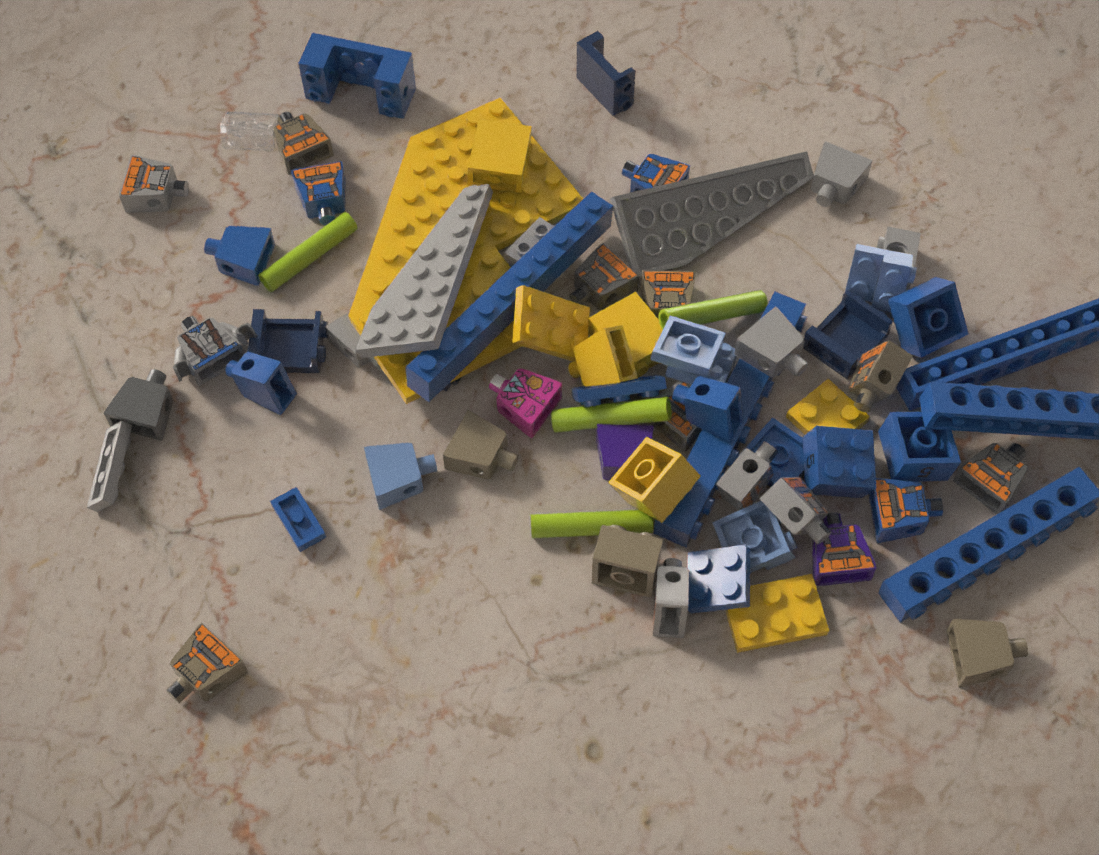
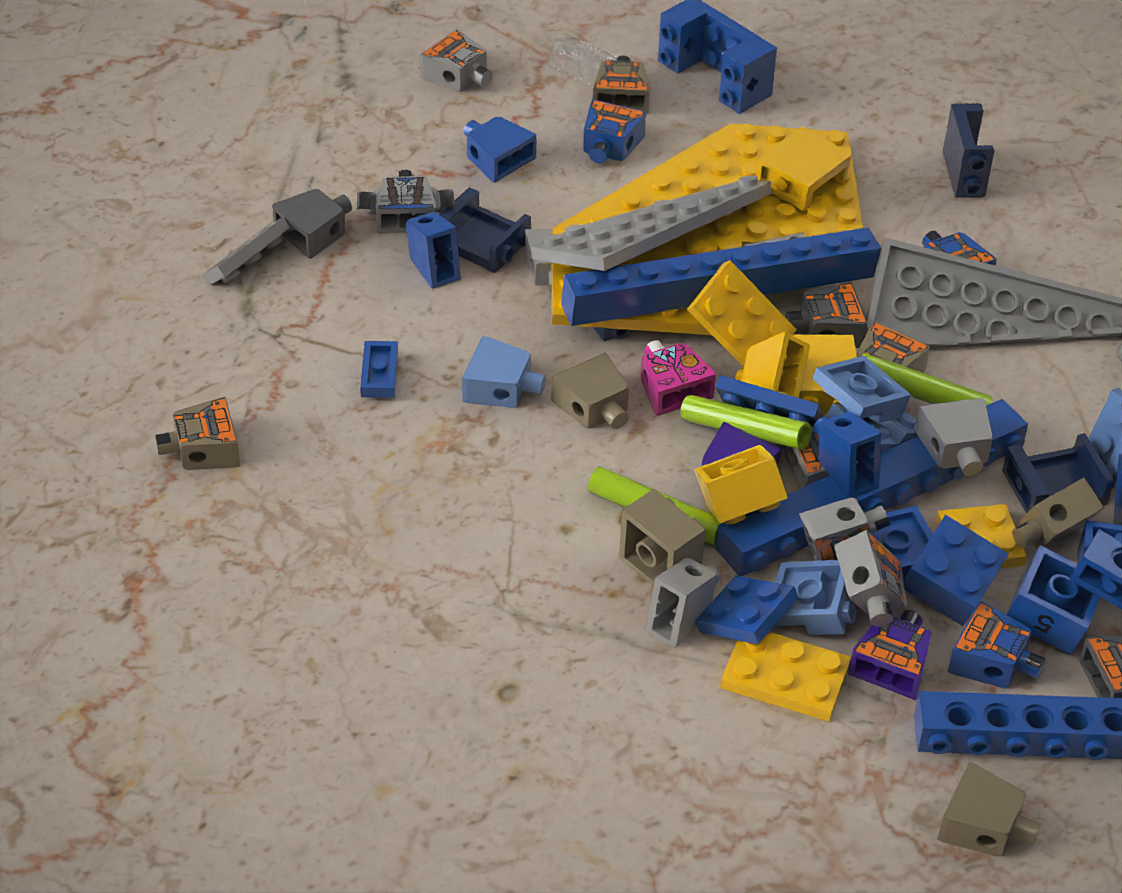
camera: 30 degrees right, 15 degrees down
(308, 252) = (559, 172): lime piece -> none

